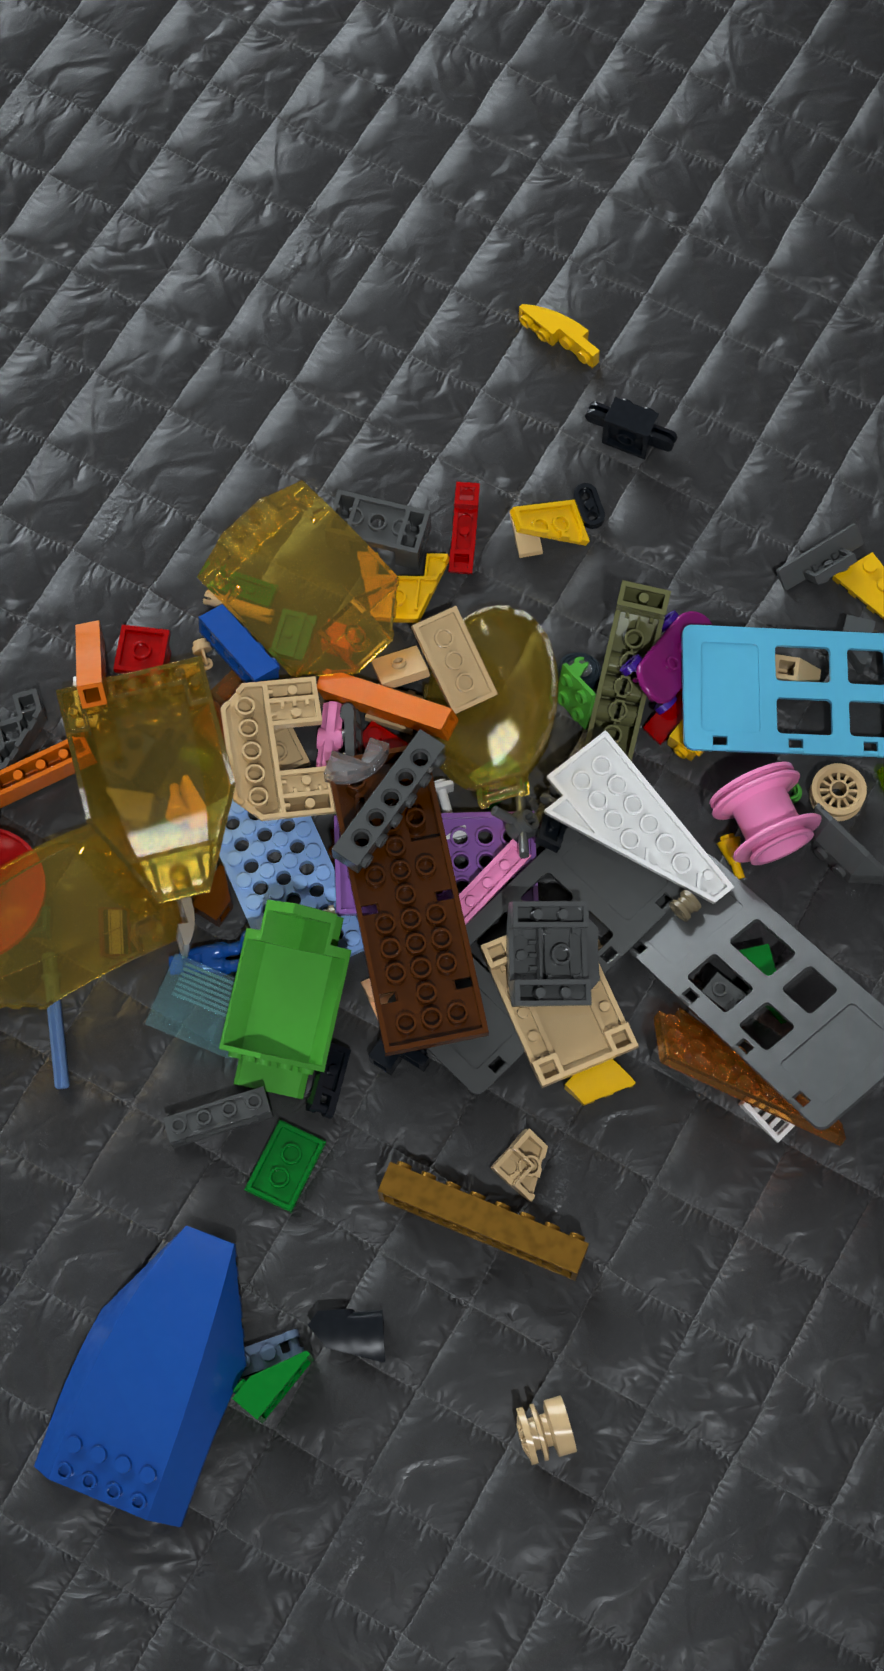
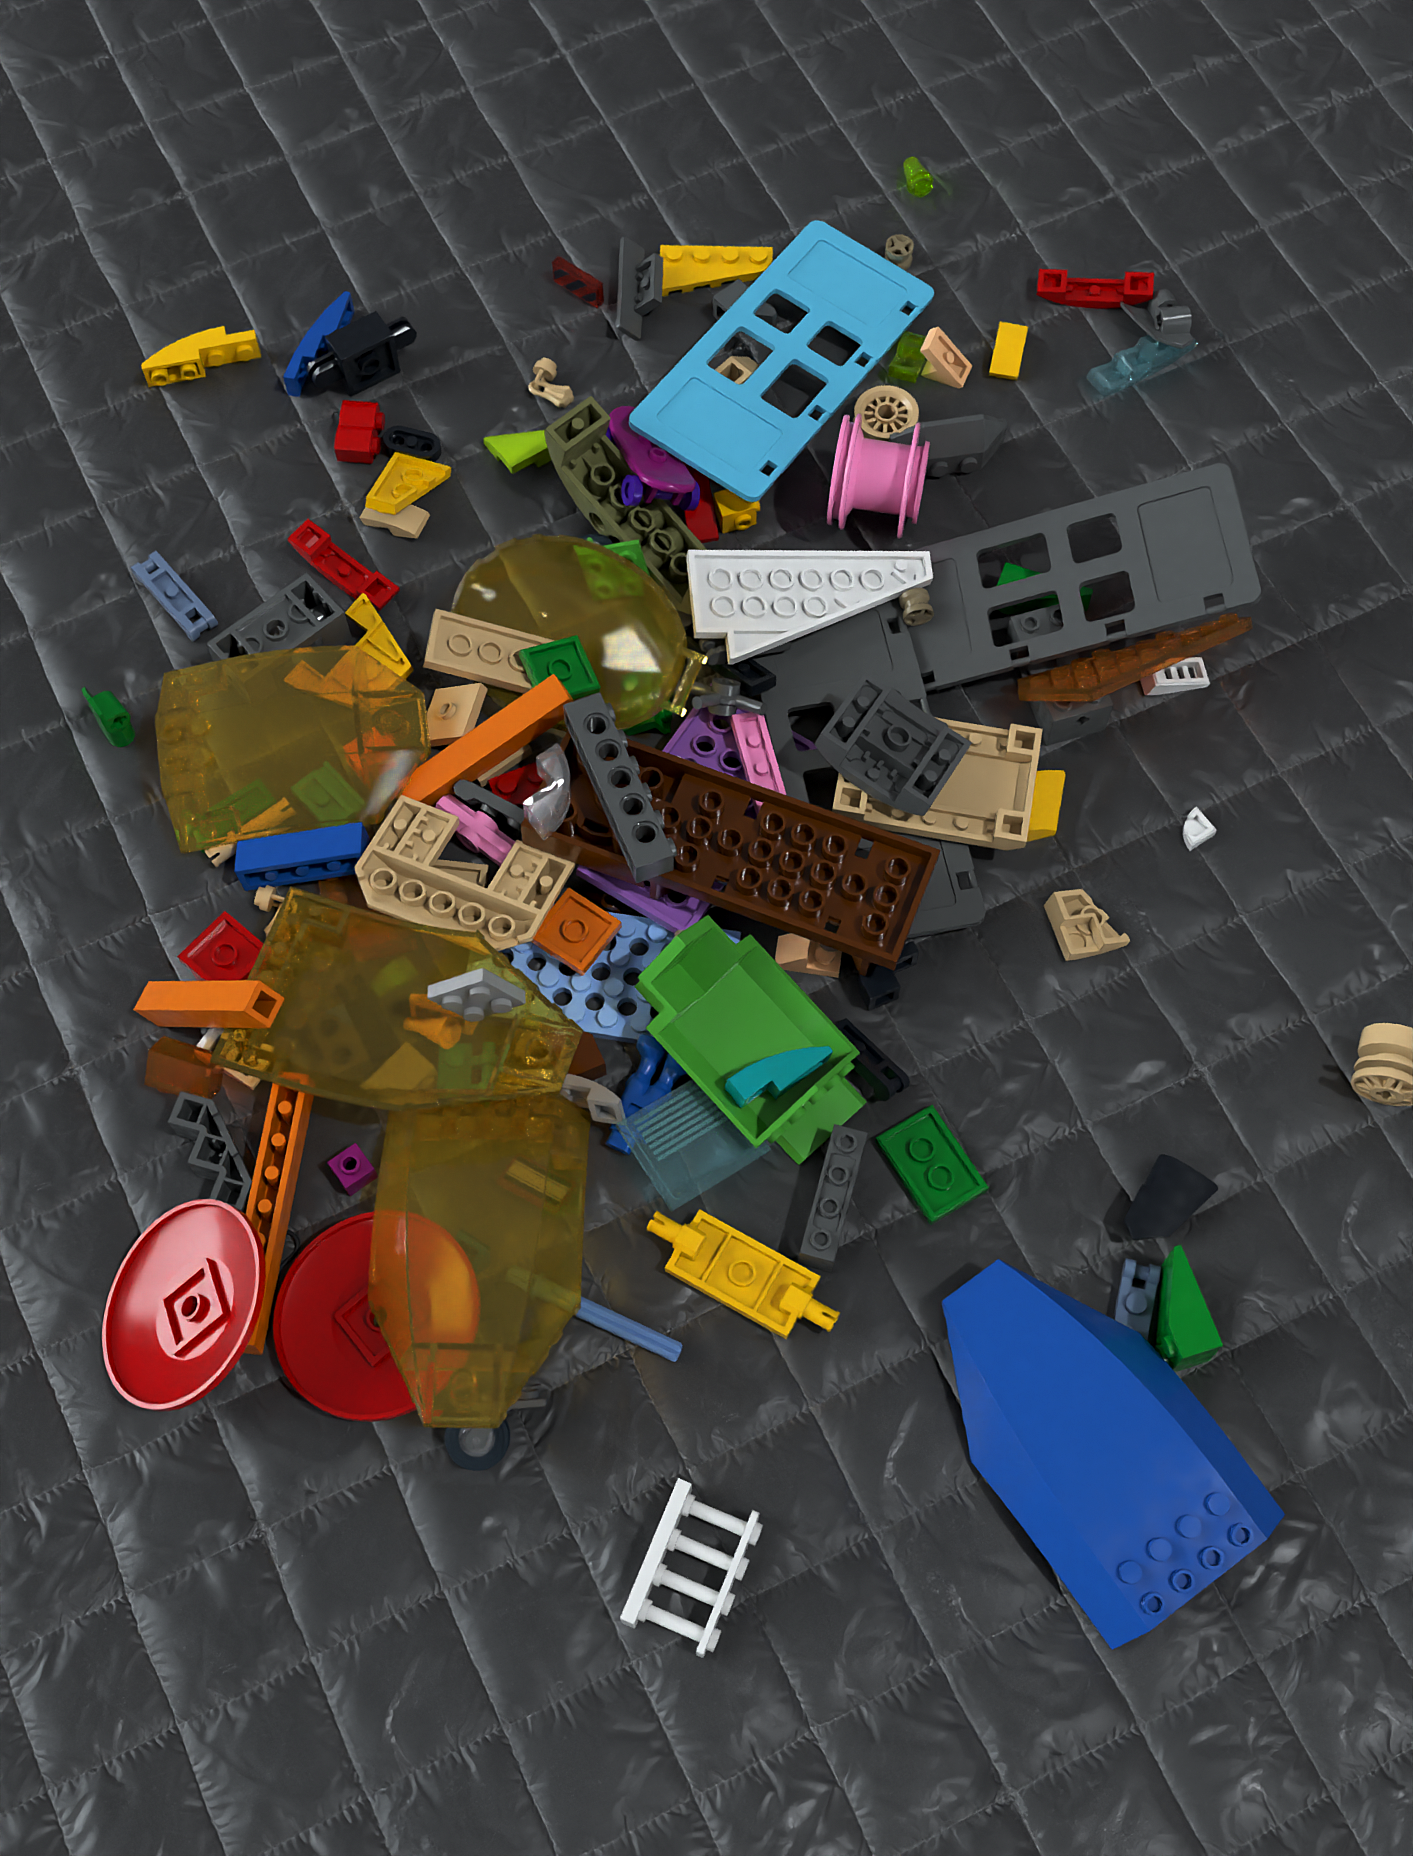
camera: 60 degrees left, 5 degrees down
(53, 673) = (182, 1067): none -> clear orange brick
(62, 824) = (353, 1179): none -> magenta plate
(135, 1093) = (742, 1273): none -> yellow plate
(186, 812) = (476, 995): none -> light grey plate
(253, 468) = (111, 717): none -> green panel
(271, 1028) = (776, 1073): none -> teal slope
(295, 844) = (576, 931): none -> orange plate
(373, 445) = (174, 595): none -> sand blue plate
(476, 710) = (565, 660): none -> green tile
(483, 1220) = (1127, 992): pearl gold brick -> none
(573, 466) = (358, 431): none -> red brick
(636, 570) = (519, 449): none -> lime slope
(639, 393) = (314, 343): none -> blue slope
(652, 1199) = (1197, 829): none -> white tile
(697, 569) = (558, 395): none -> tan piece
(728, 845) = (878, 540): yellow cone -> none
(798, 520) = (578, 282): none -> clear red tile

